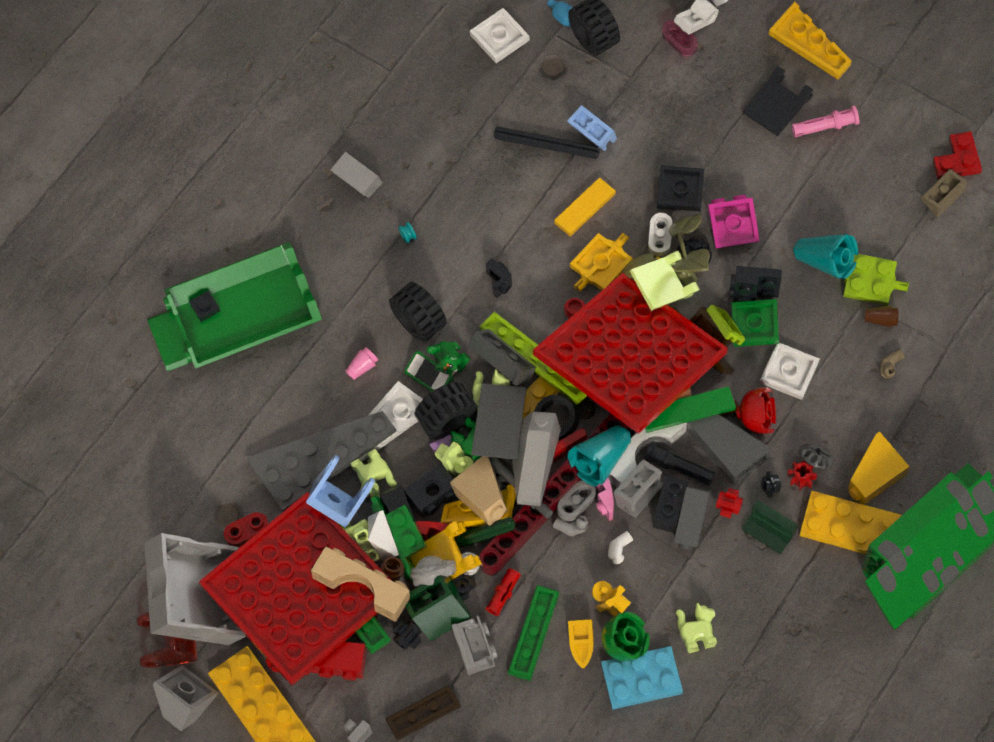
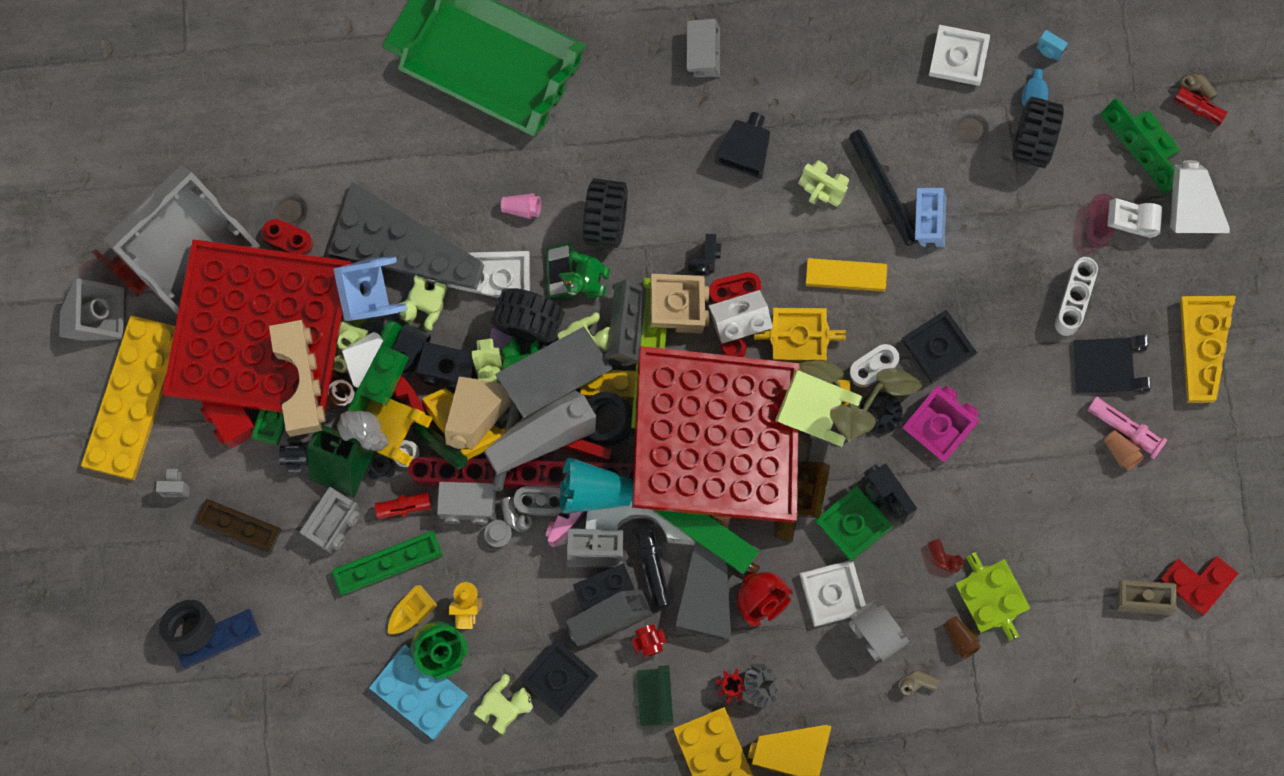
camera: 50 degrees right, 10 degrees up
(204, 306) = (466, 26): black plate -> none
(407, 232) = (684, 139): teal bush -> none
(447, 200) = (745, 146): none -> black torso
(514, 174) = (823, 186): none -> yellowish green hips
(517, 314) = (679, 302): none -> tan plate
(536, 279) = (734, 286): none -> red plate
(537, 547) = (466, 502): none -> light grey hinge
(559, 285) = (740, 316): none -> white brick
(575, 545) = (498, 533): none -> light grey plate
(616, 547) = (526, 571): white arm -> none
(707, 579) = (559, 678): none -> black plate
(715, 78) = (1081, 285): none -> white beam
(725, 324) = (825, 498): lime tile -> none
(771, 484) = (700, 664): black plate -> none
(823, 289) = (944, 560): none -> clear red arm
(828, 254) = (979, 539): teal cone -> none
(839, 135) = (1123, 450): none -> nougat cone
(839, 357) = (878, 629): none -> light grey brick

